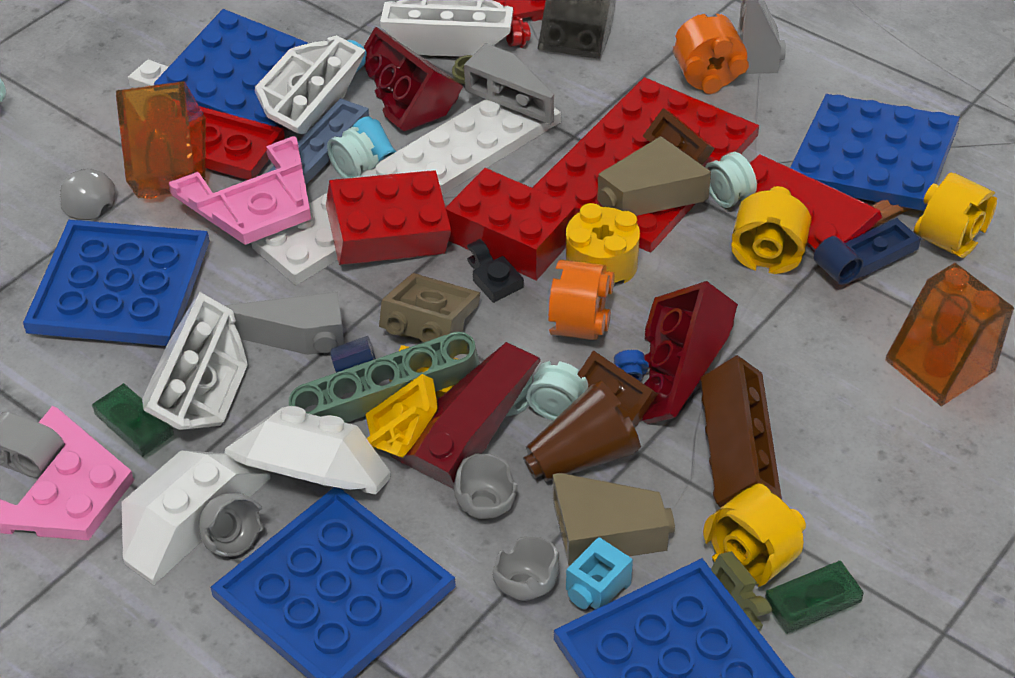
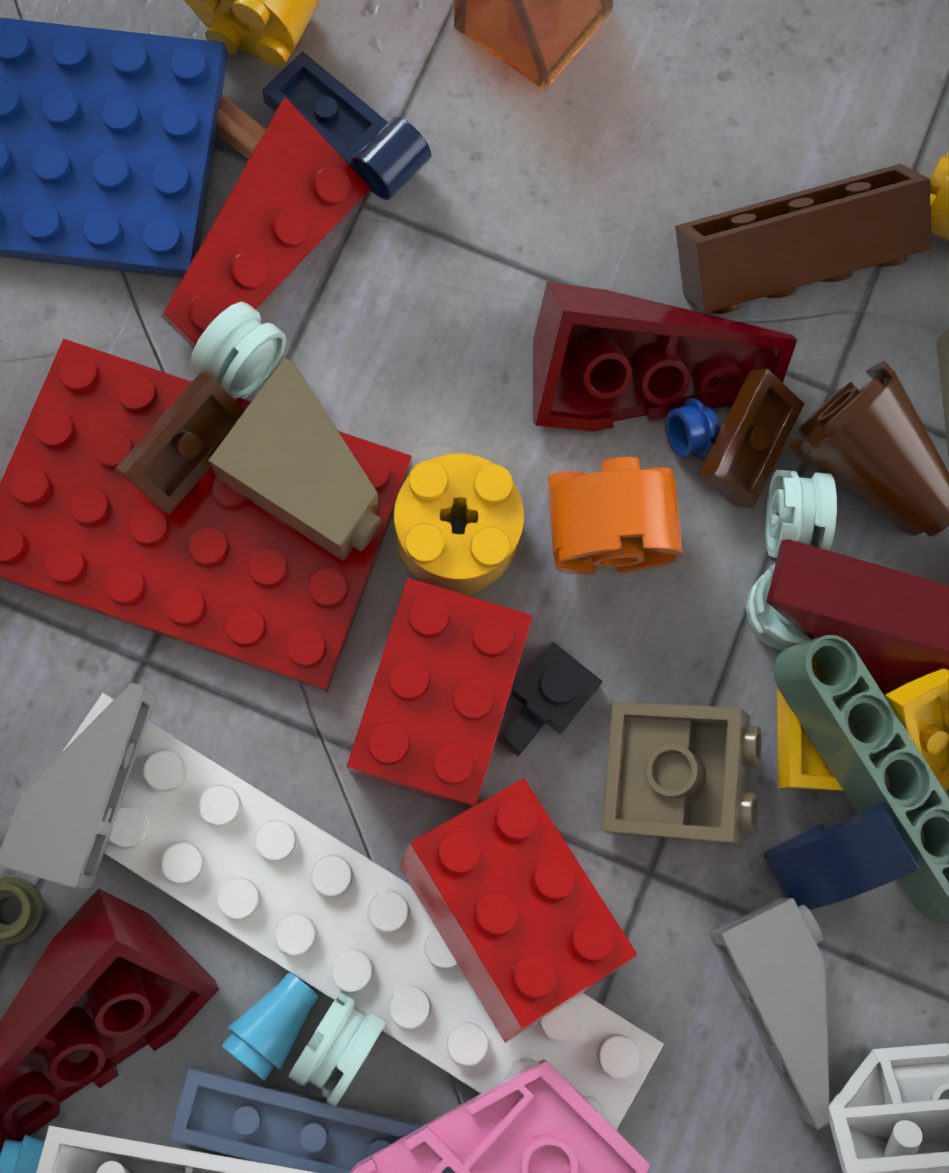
camera: 115 degrees left, 30 degrees up
(771, 231) = (369, 257): yellow brick -> none

